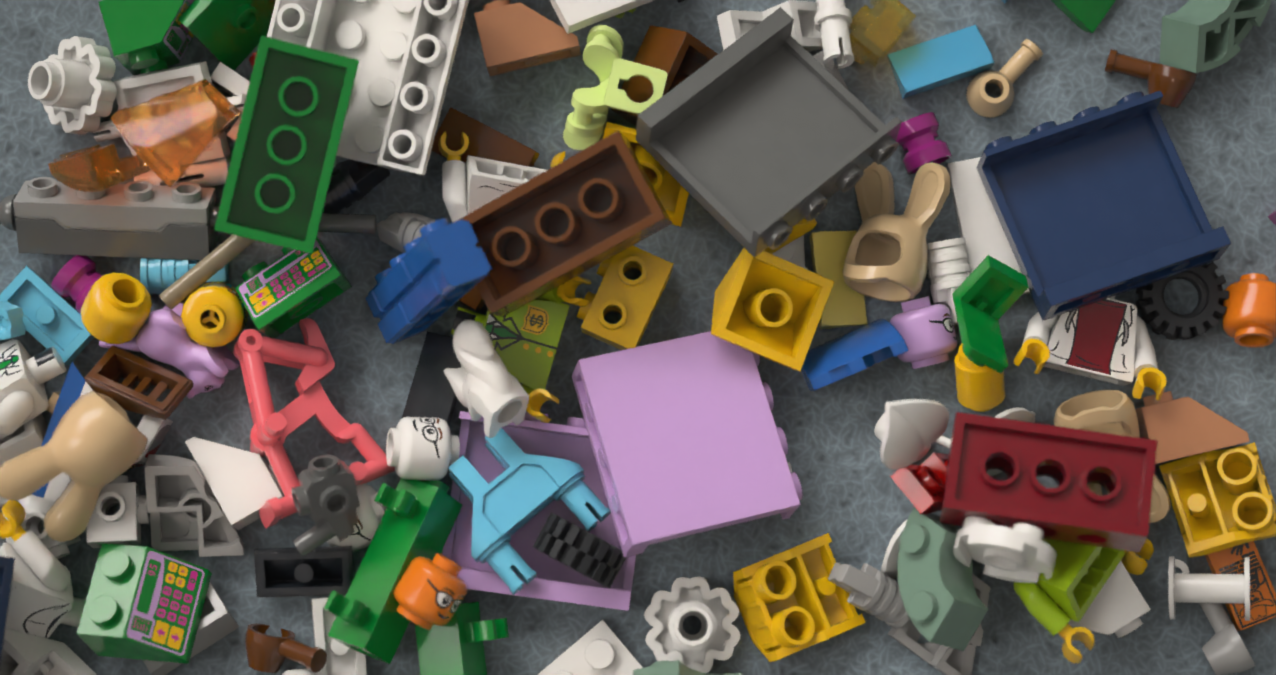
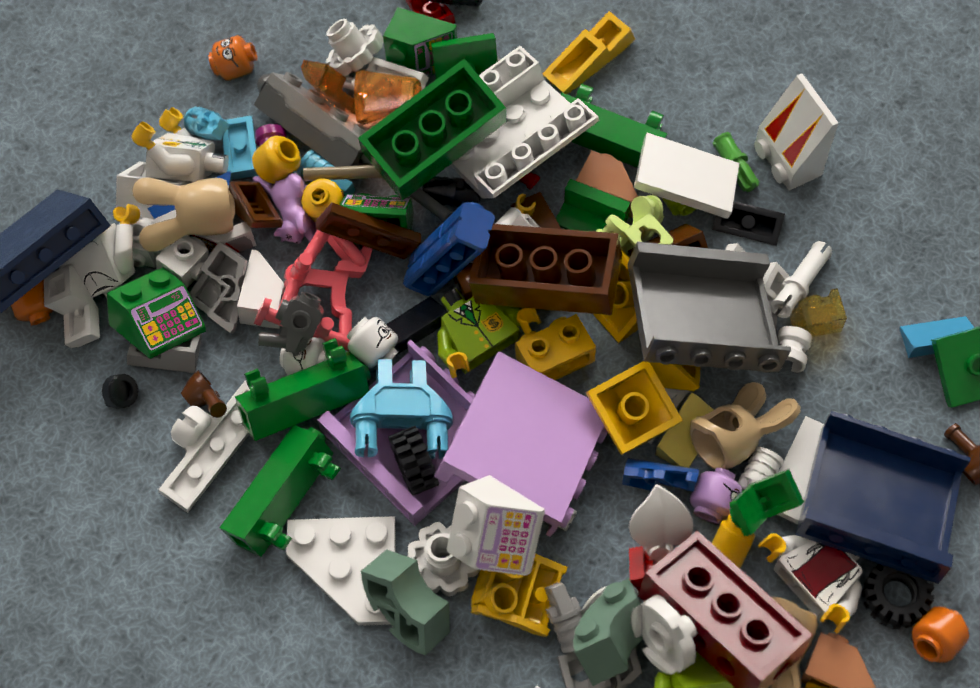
camera: 40 degrees right, 20 degrees down
(288, 574) = (246, 355): black slope -> none
(305, 320) = (368, 231): none -> reddish brown tile
(430, 591) = (310, 413): orange head -> none
(483, 380) = (435, 331): white animal -> none
(529, 89) = (589, 208): none -> green panel
(743, 571) = (495, 528): none -> white slope
(876, 90) = (799, 341): none -> white wheel
(919, 138) = (799, 386): magenta wheel -> none
(940, 61) = (844, 361): dark azure slope -> none
(1004, 78) = (865, 406): tan bar -> none

